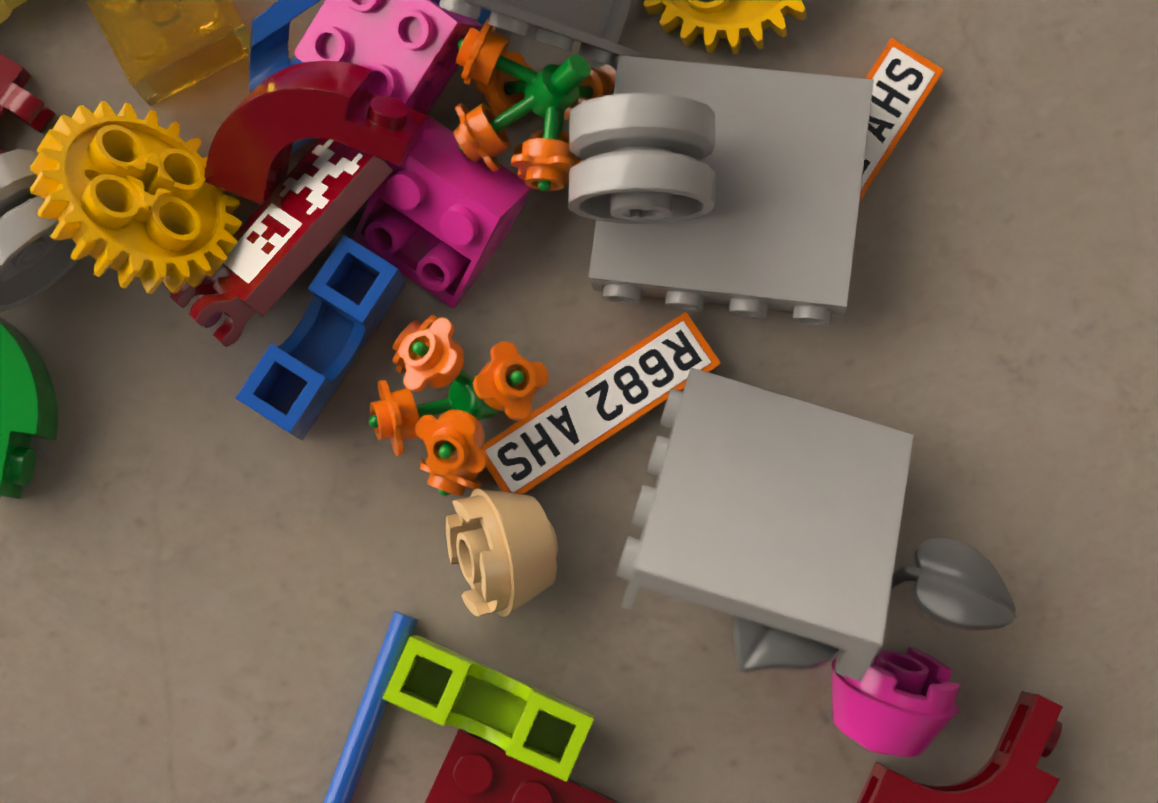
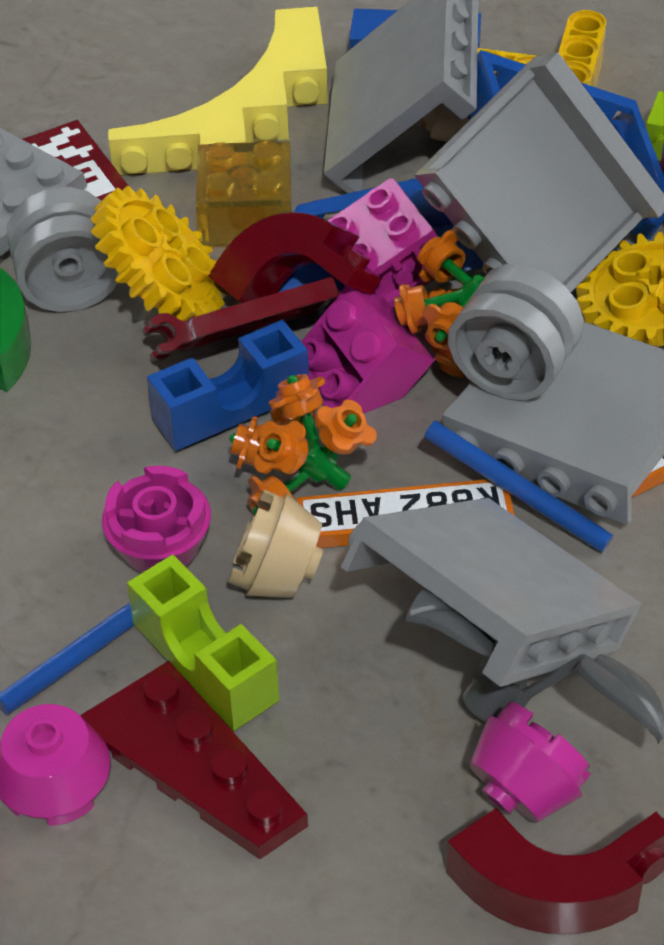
camera: 30 degrees right, 35 degrees down
(353, 577) = (156, 517): none -> dark pink cone
(706, 323) = (519, 486): none -> blue bar

